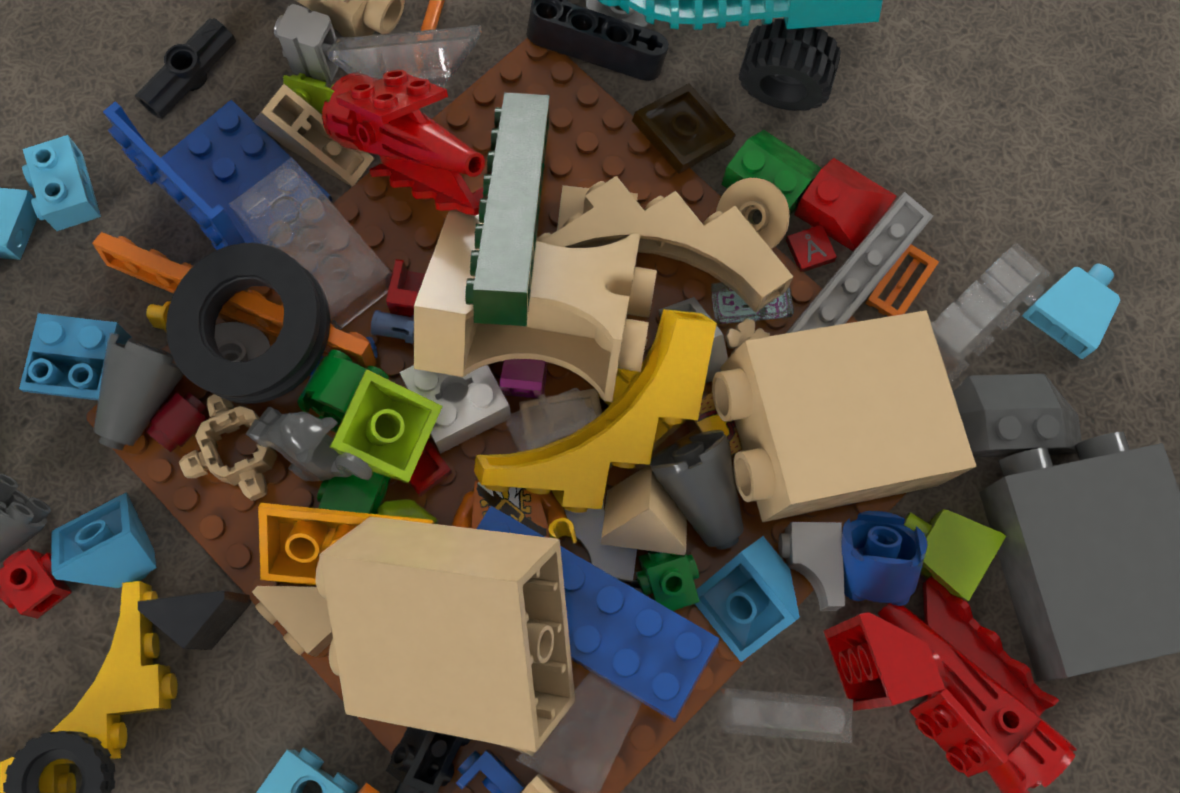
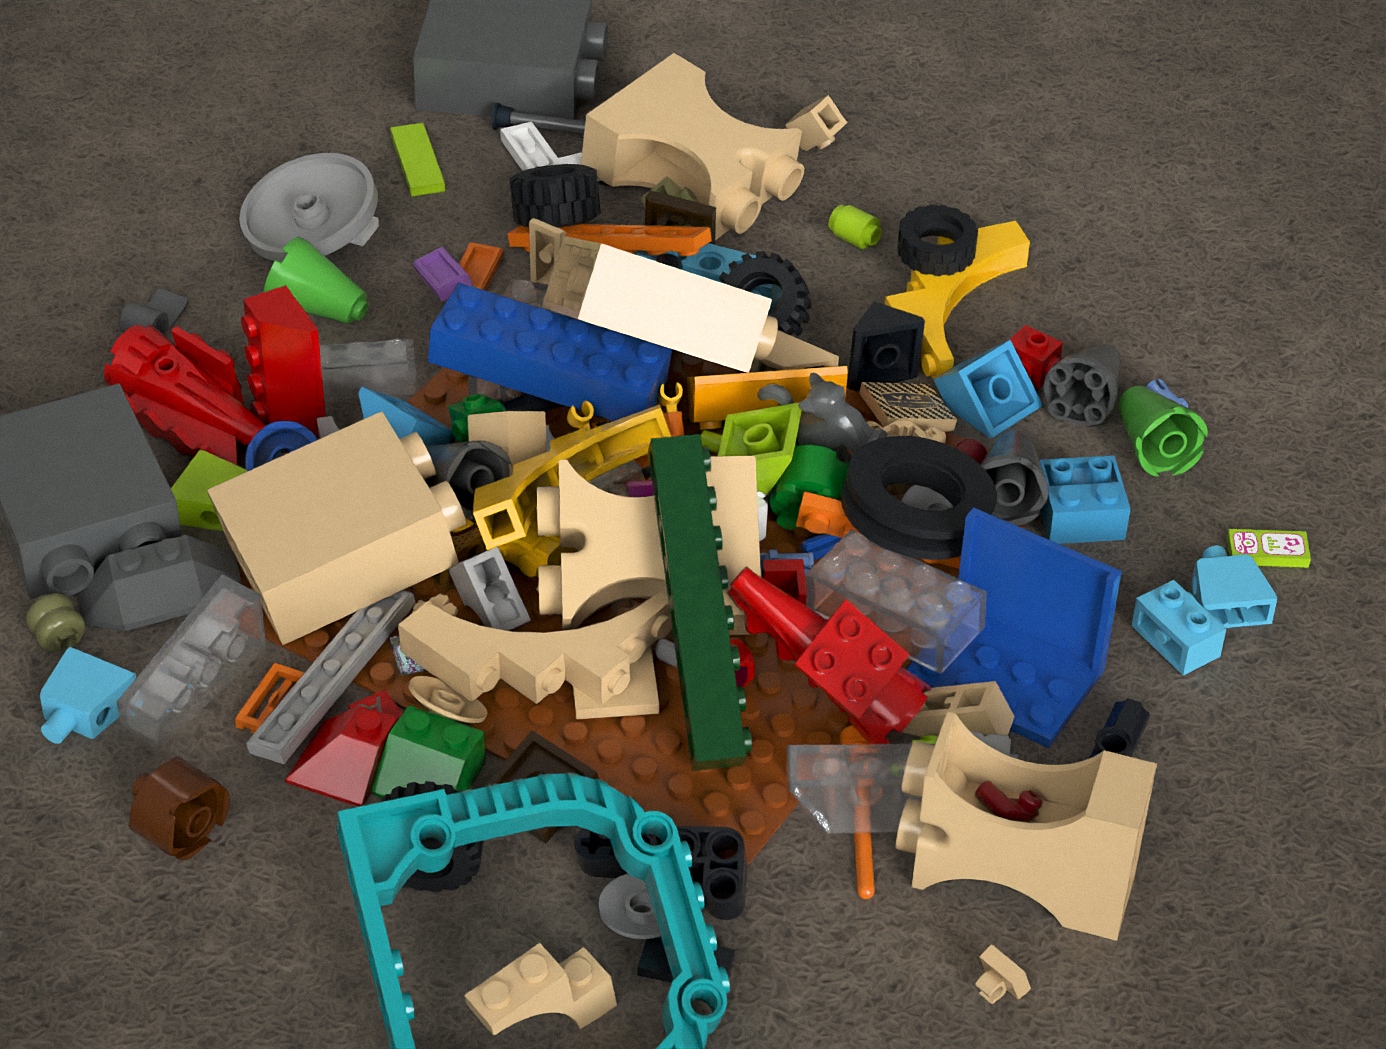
camera: 170 degrees right, 30 degrees down
(199, 534) = (908, 403): none -> tile
(295, 744) = (775, 271): none -> black tyre
(995, 146) = (178, 808): none -> reddish brown brick
(1107, 401) = (55, 622): none -> olive piece

